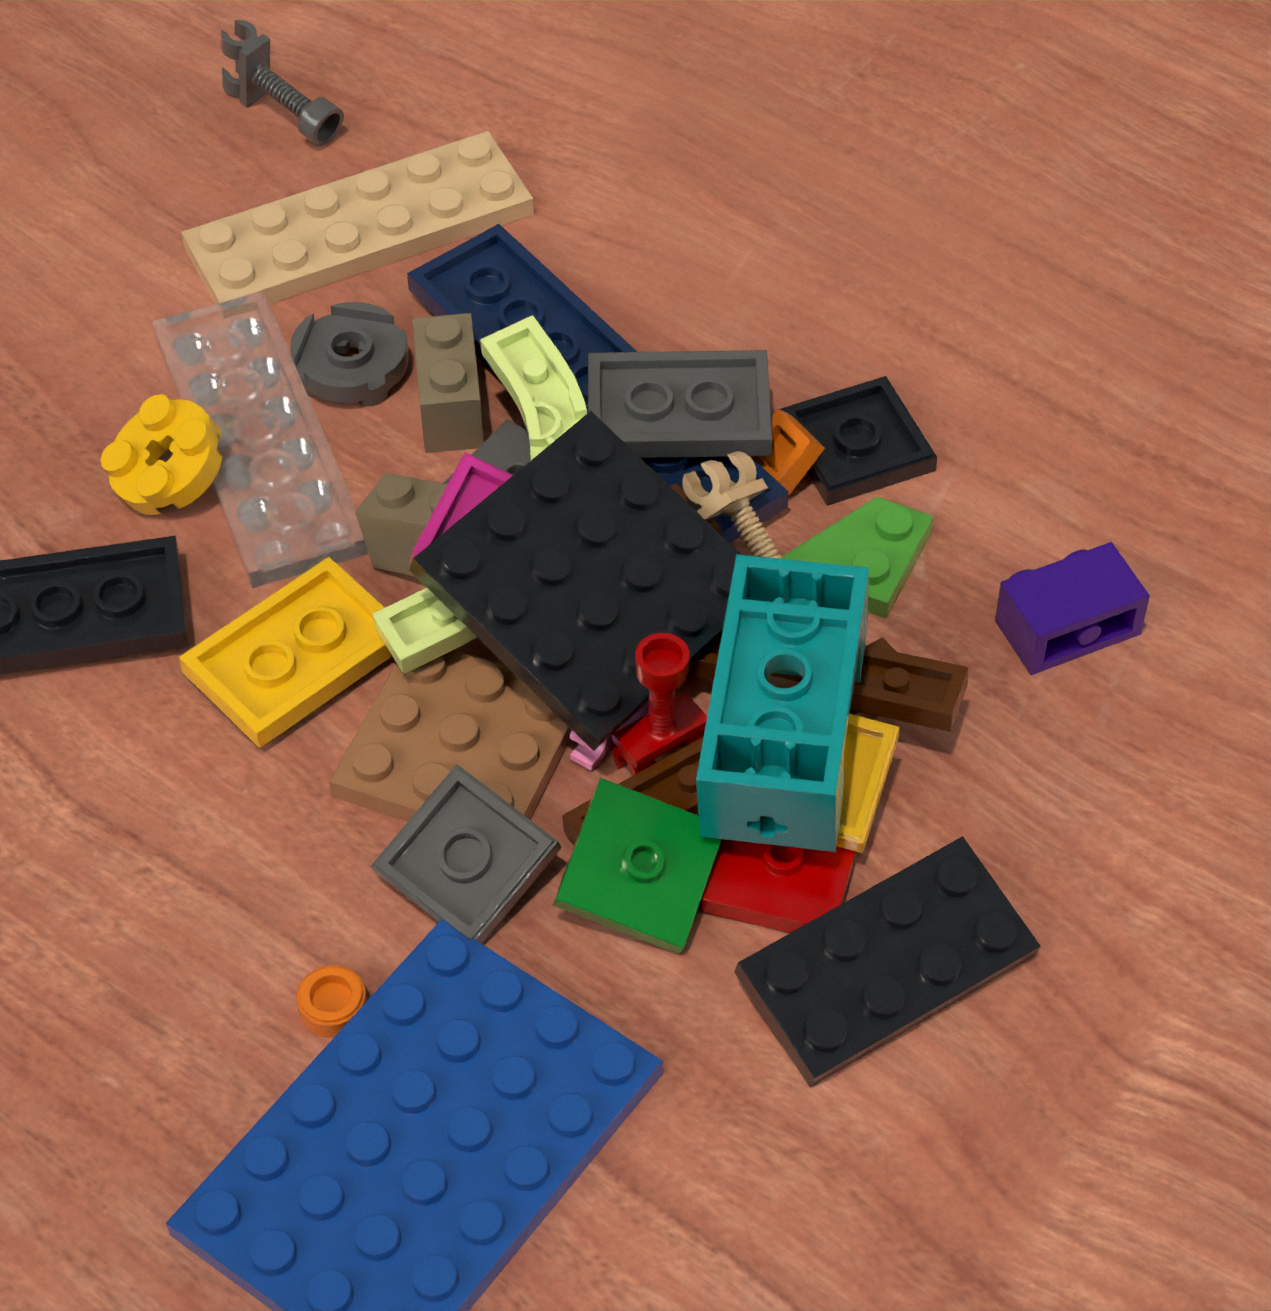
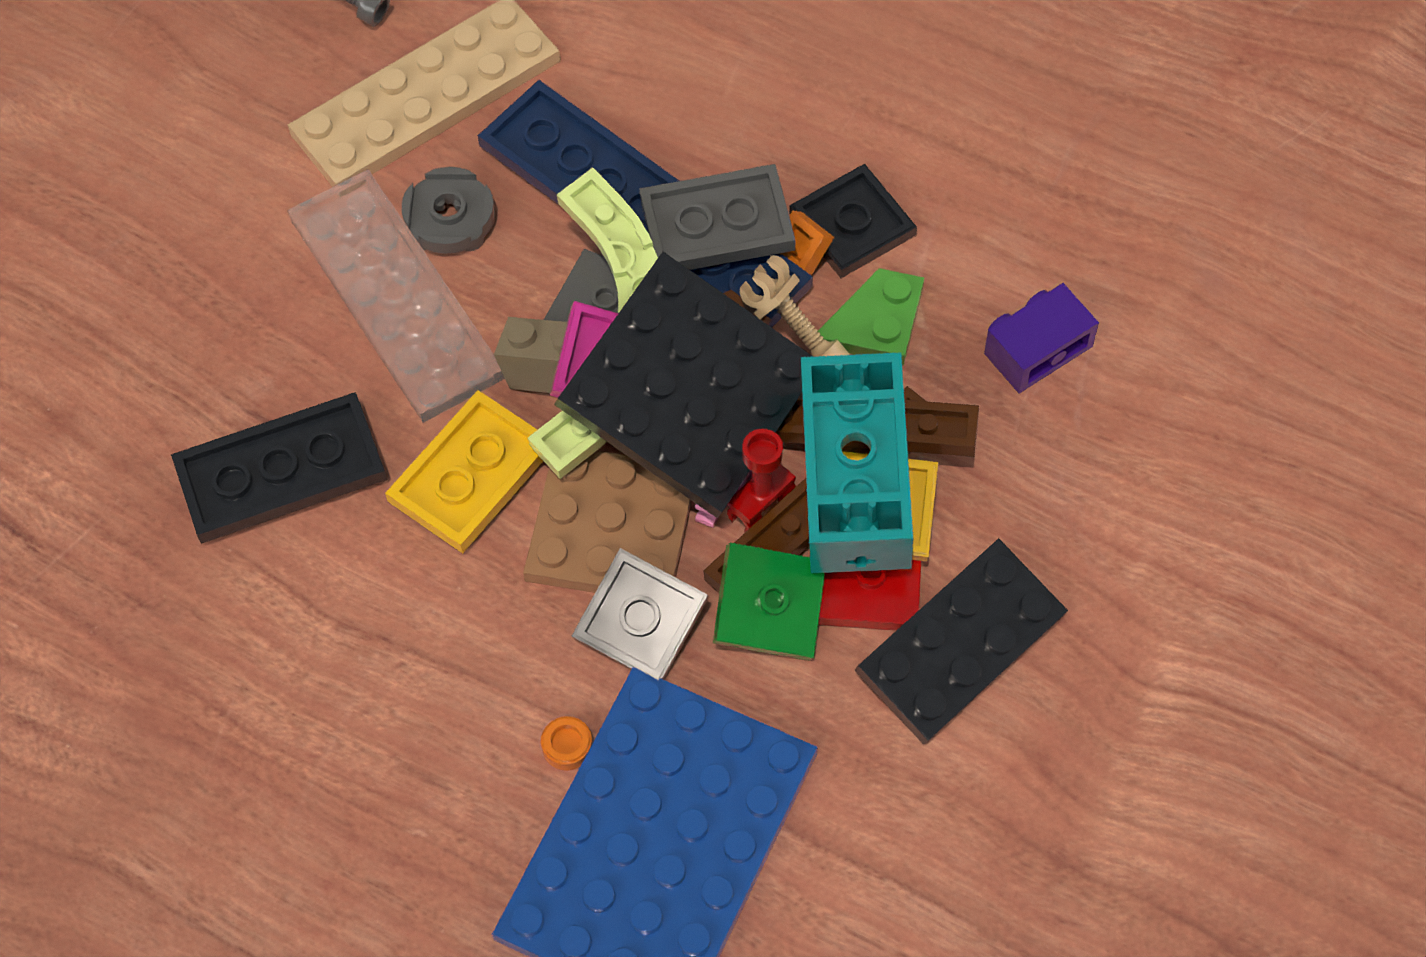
camera: 10 degrees left, 10 degrees up
(160, 426) = (310, 310): yellow plate -> none
(448, 383) = (533, 226): dark tan brick -> none

